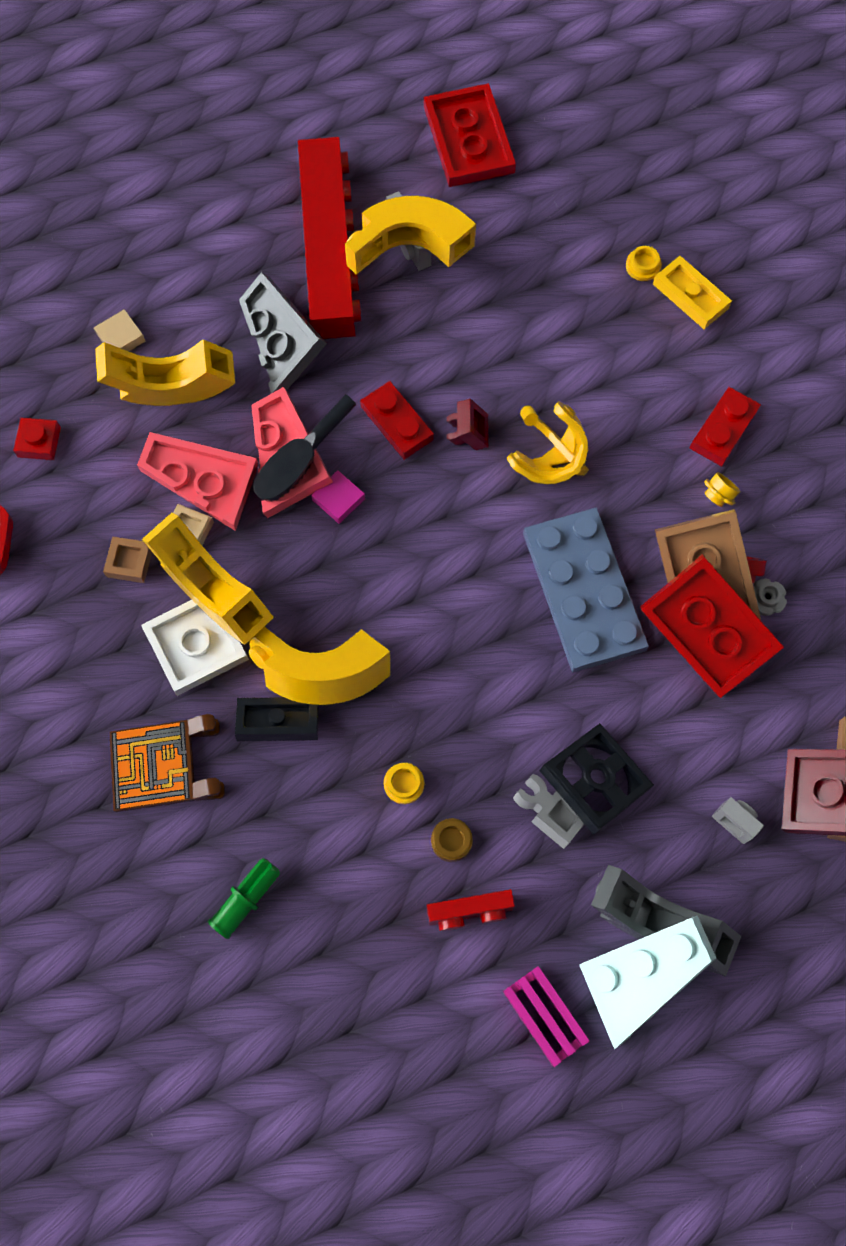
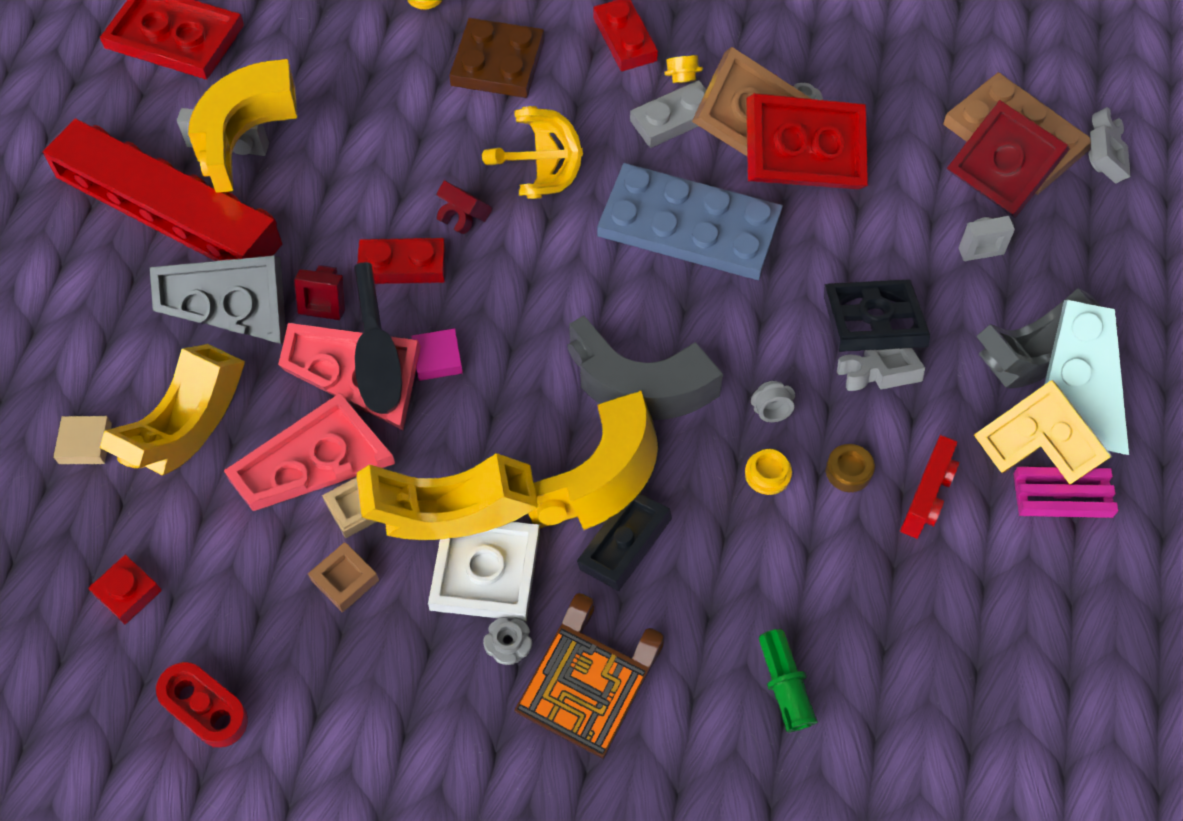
camera: 55 degrees left, 10 degrees down
(160, 701) = (508, 653): none -> light grey plate
(326, 387) = (320, 293): none -> dark red tile
(416, 666) = (668, 386): none -> dark grey arch
(465, 749) = (773, 401): none -> light grey plate
(582, 968) = (1047, 422): none -> yellow plate
(626, 355) = (497, 57): none -> reddish brown plate
(666, 506) = (668, 115): none -> light grey plate

